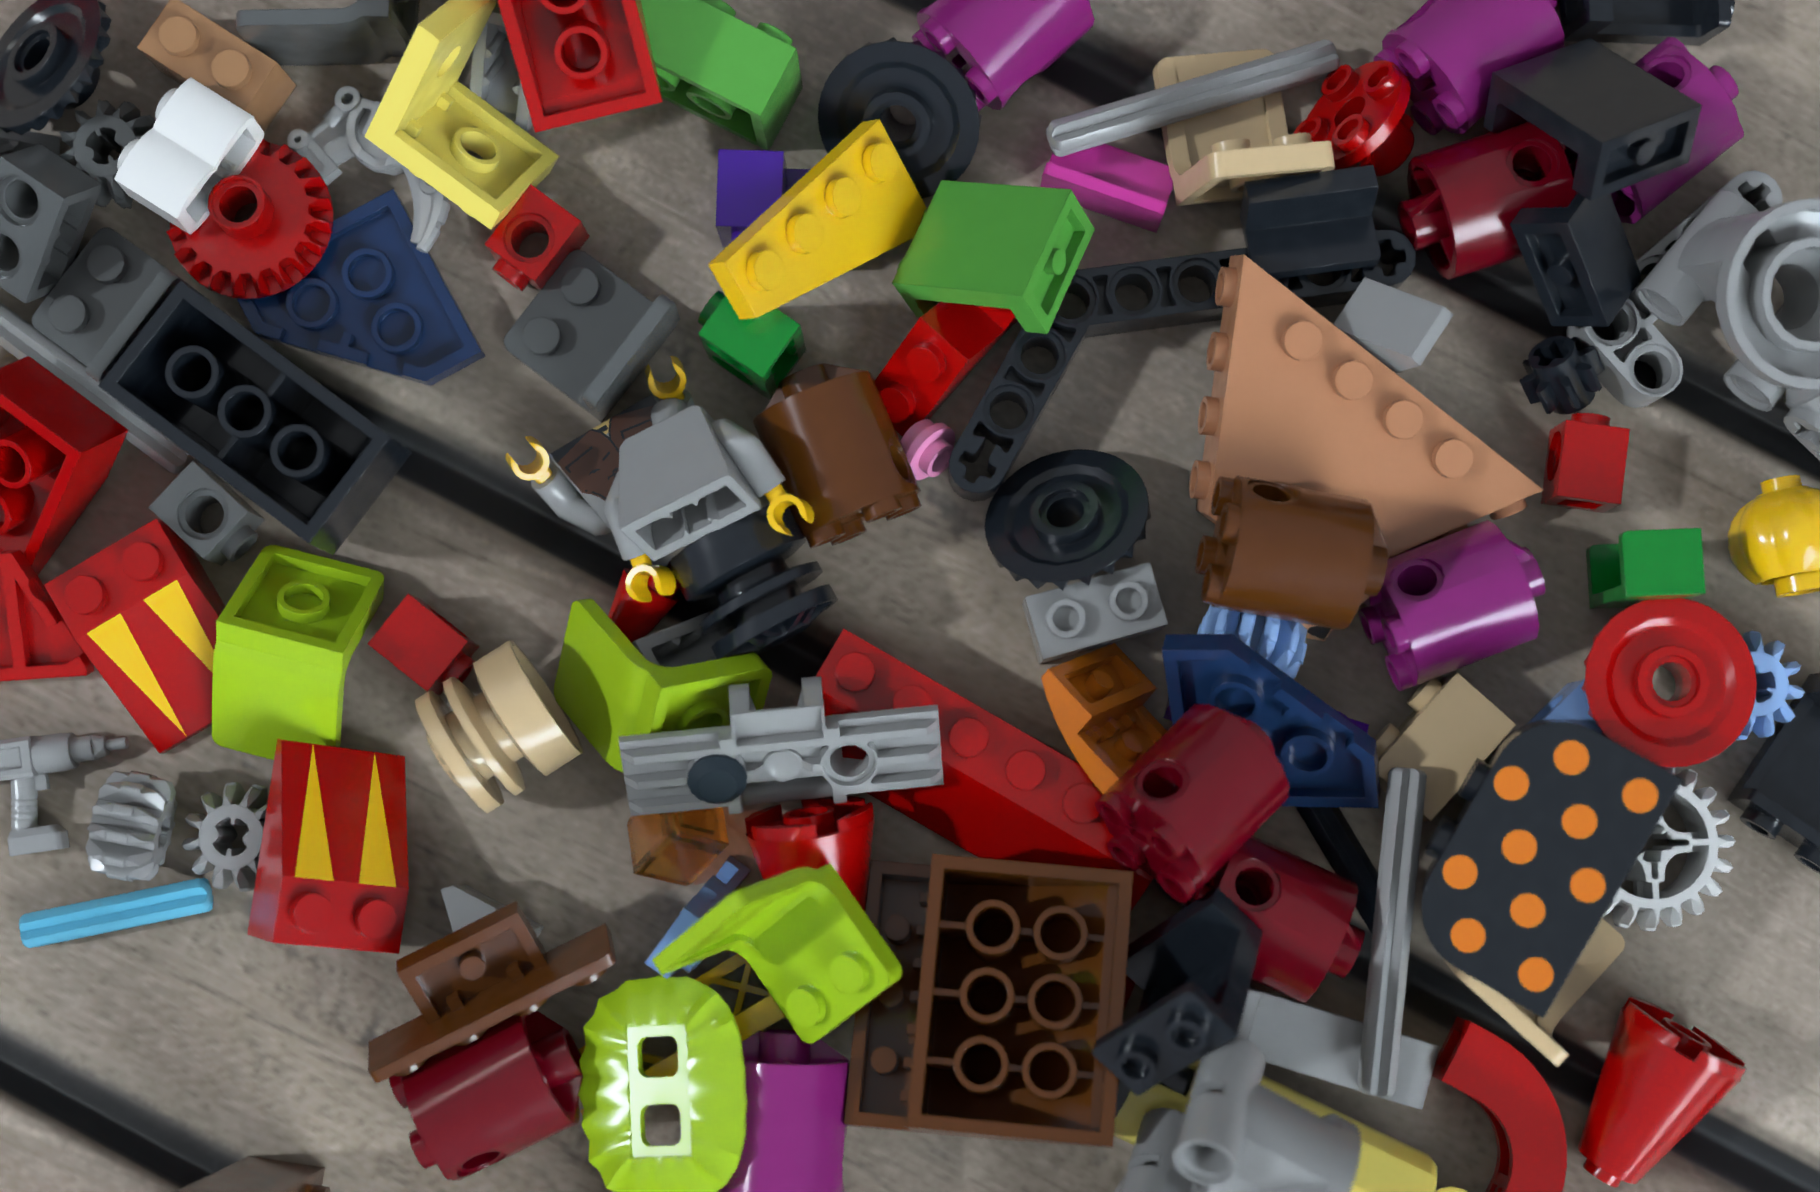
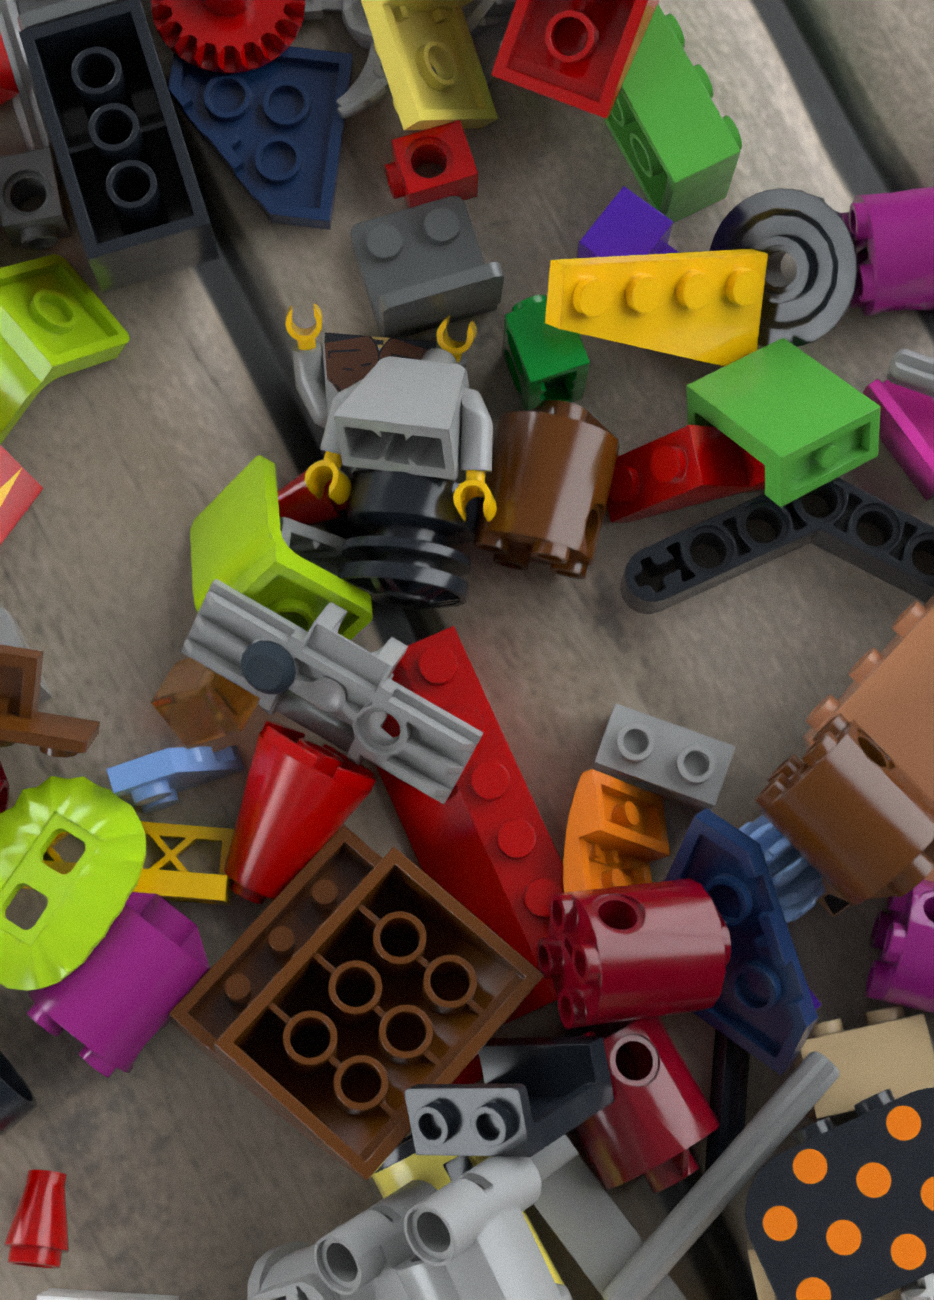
camera: 30 degrees right, 5 degrees down
(424, 645) = (120, 414): red brick -> none
(497, 727) = (122, 511): tan wheel -> none
(802, 942) = (241, 842): lime piece -> none
(928, 448) = (622, 536): bright pink plate -> none
(1067, 517) = (694, 667): black gear -> none

